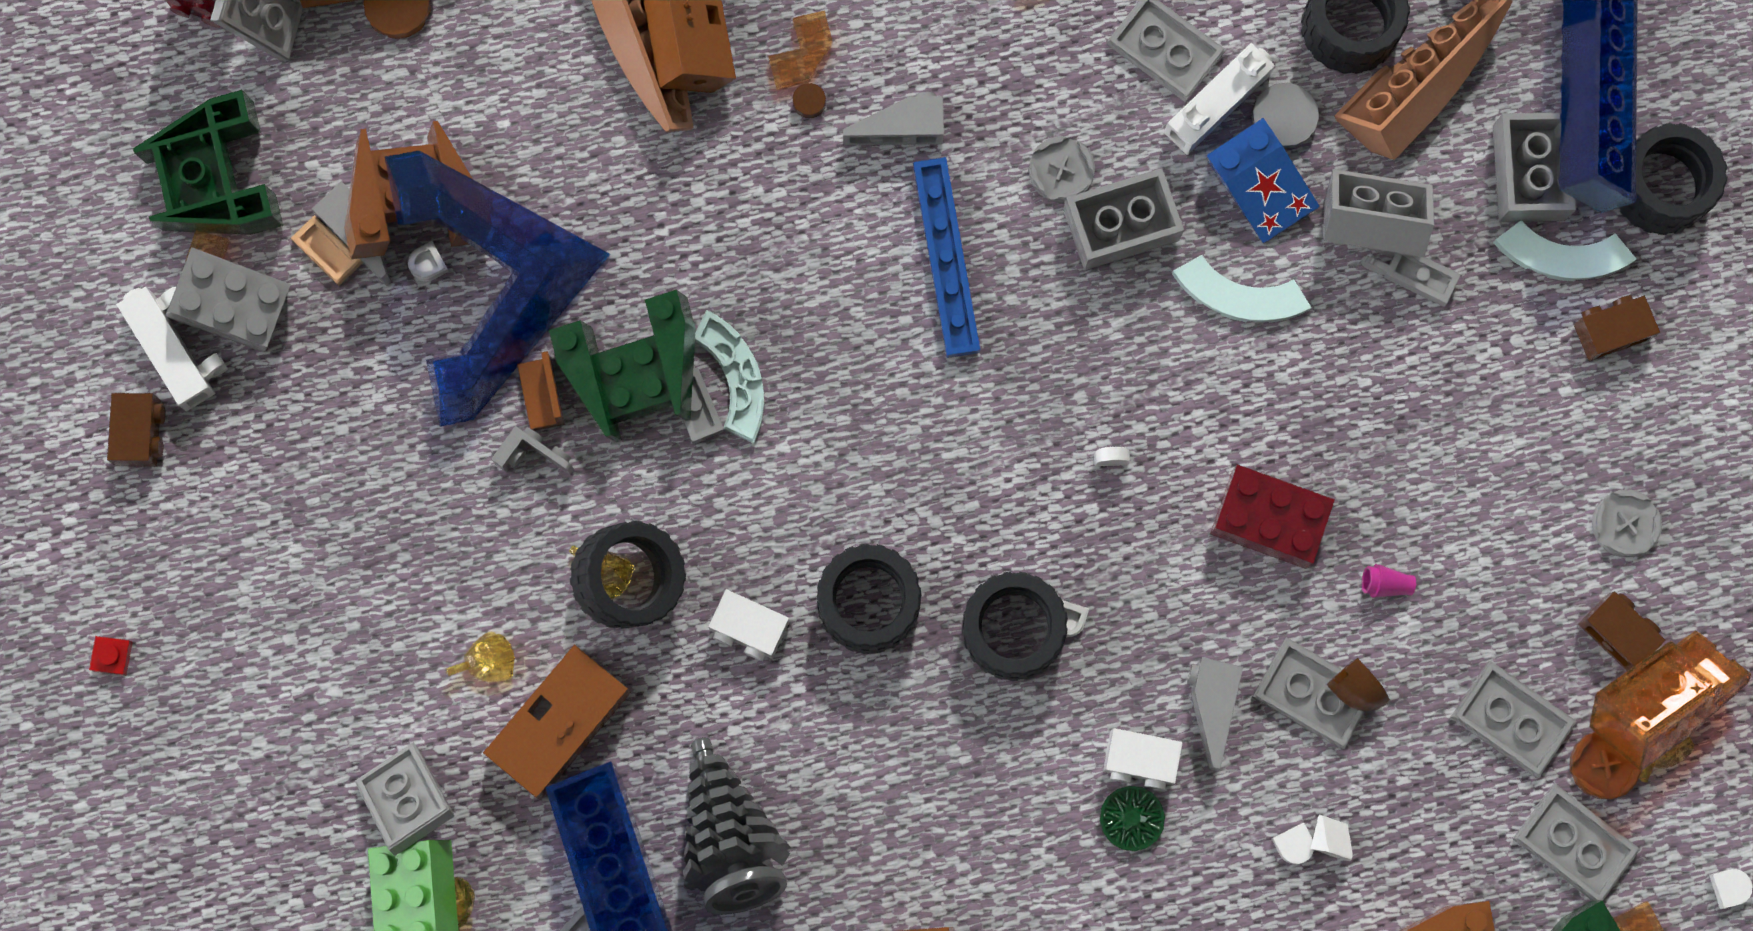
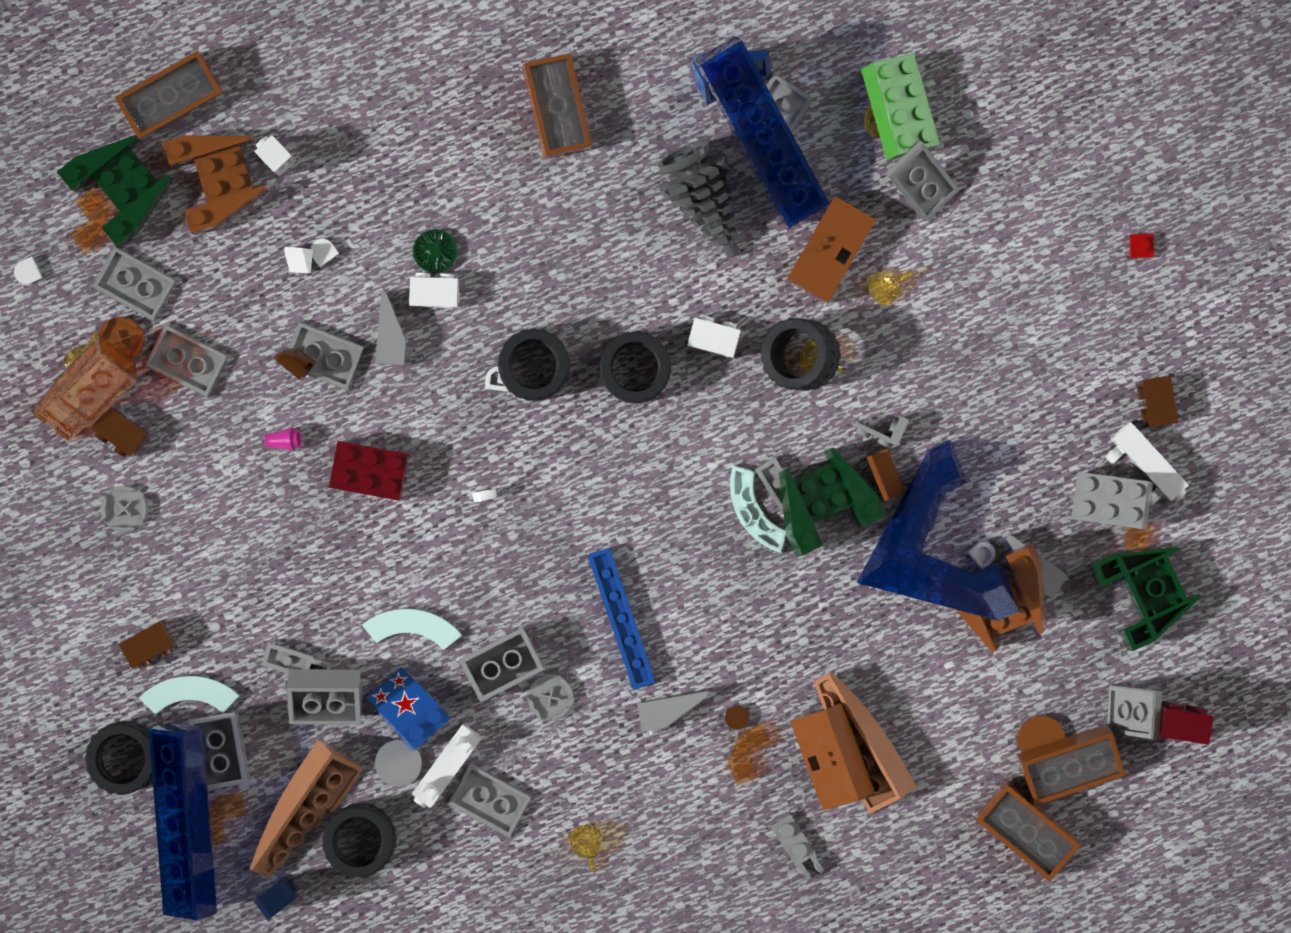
camera: 175 degrees right, 10 degrees up
(326, 250) = (1055, 551): light nougat tile -> none
(1535, 95) = (225, 807): none -> clear orange tile

